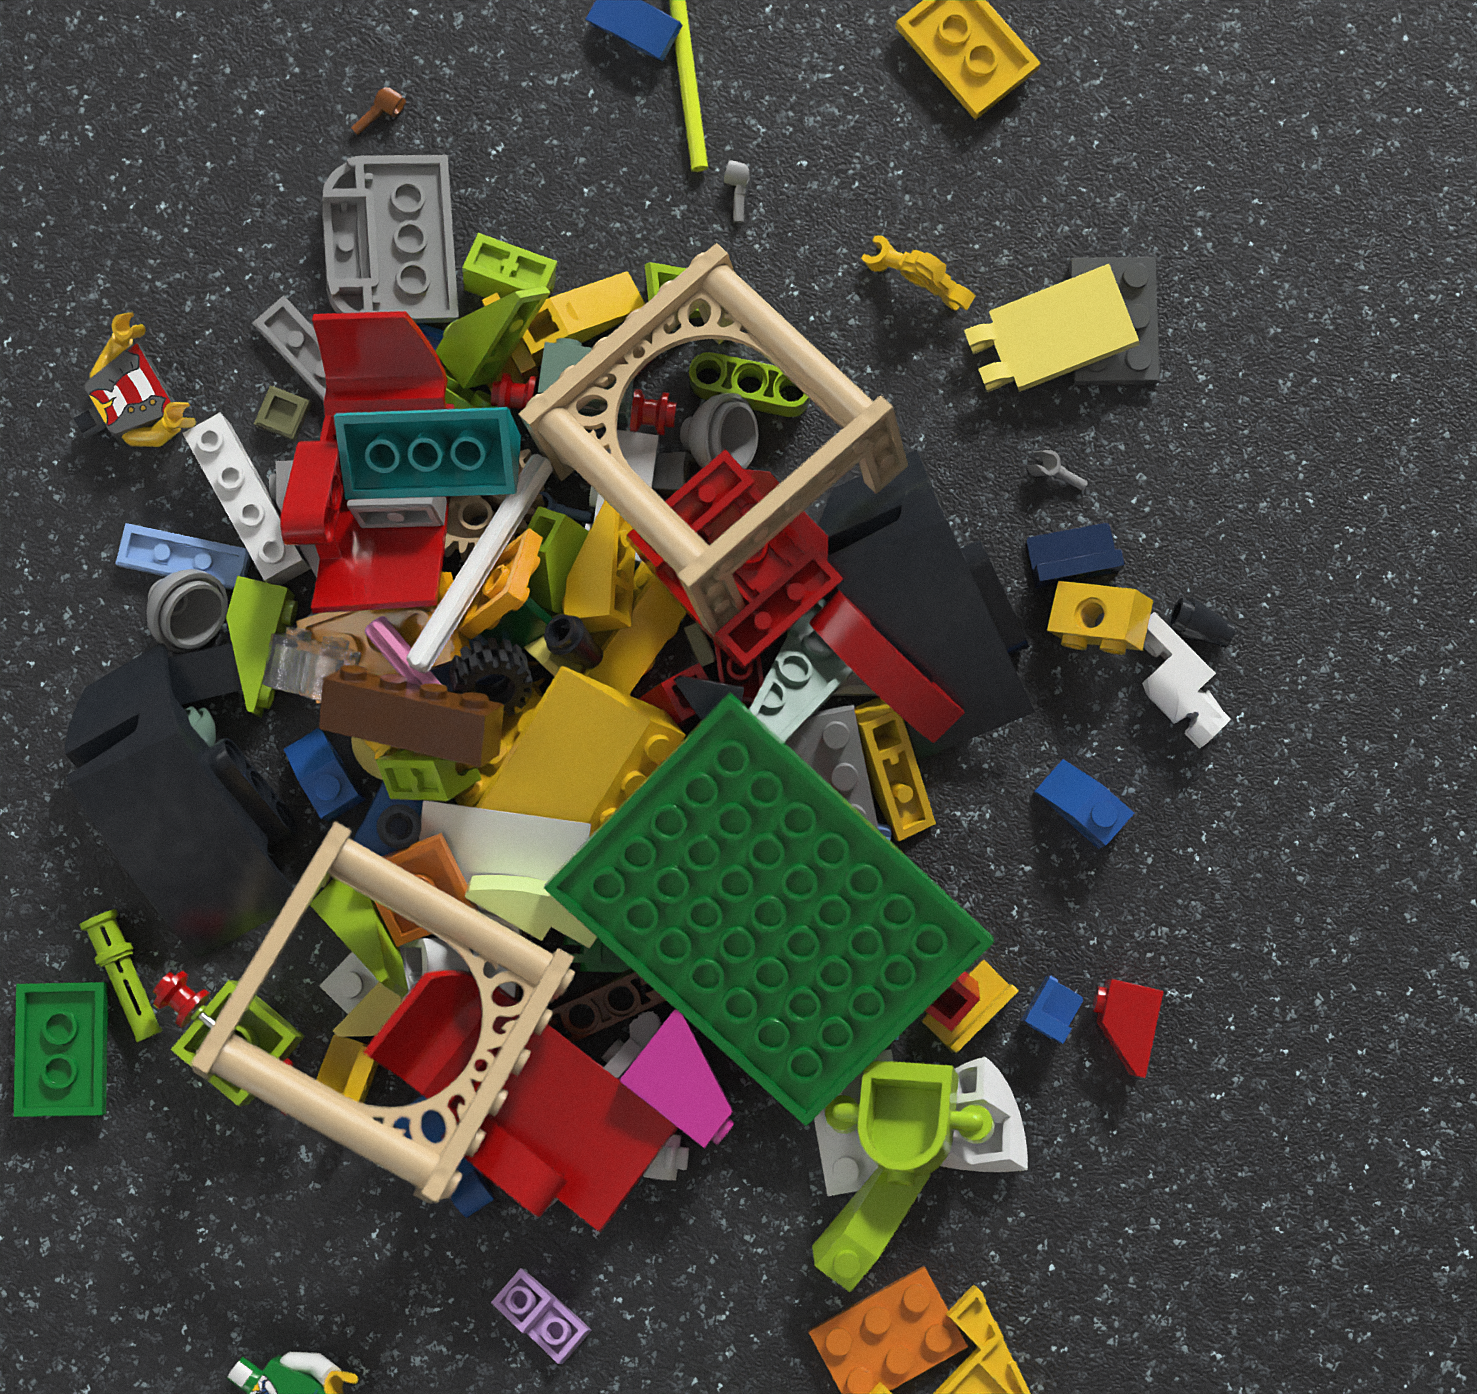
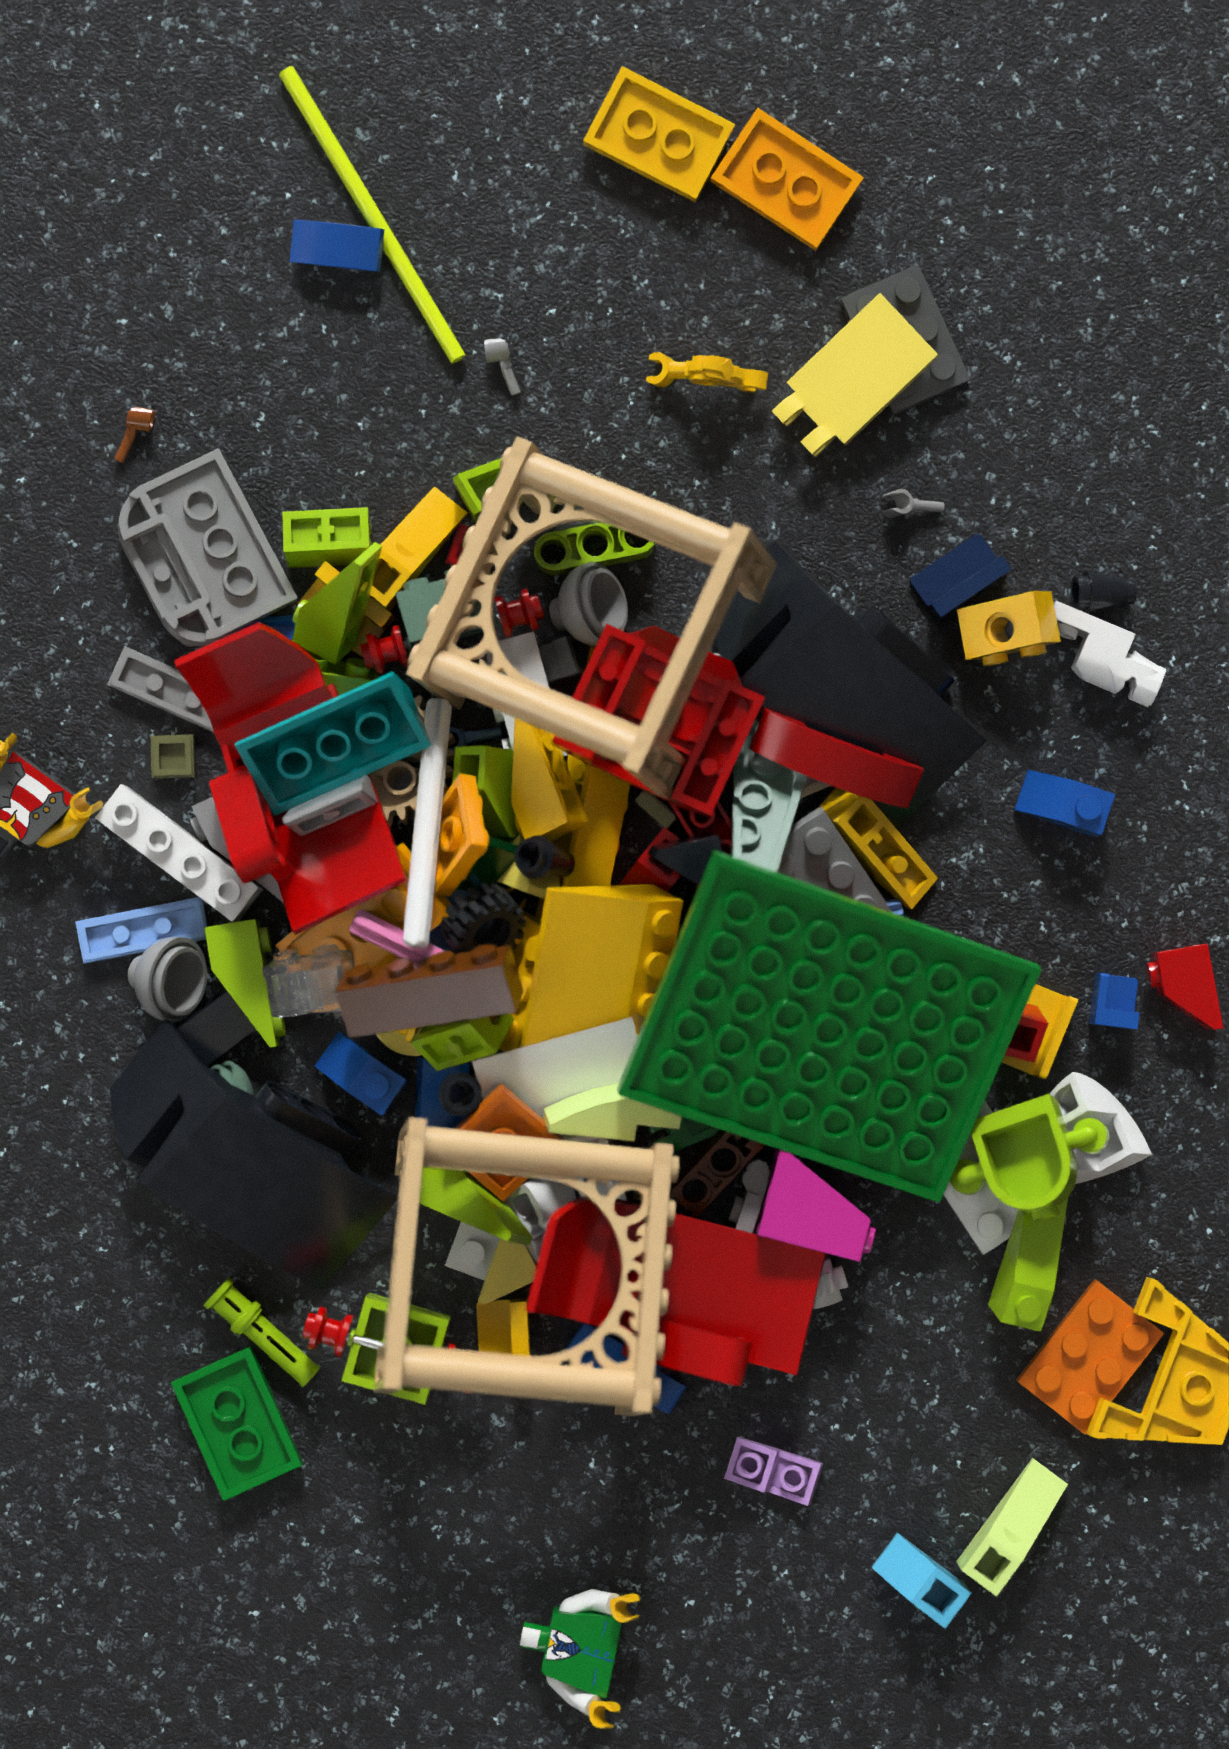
camera: 25 degrees left, 5 degrees up
(1067, 132) = (786, 179): none -> light orange plate

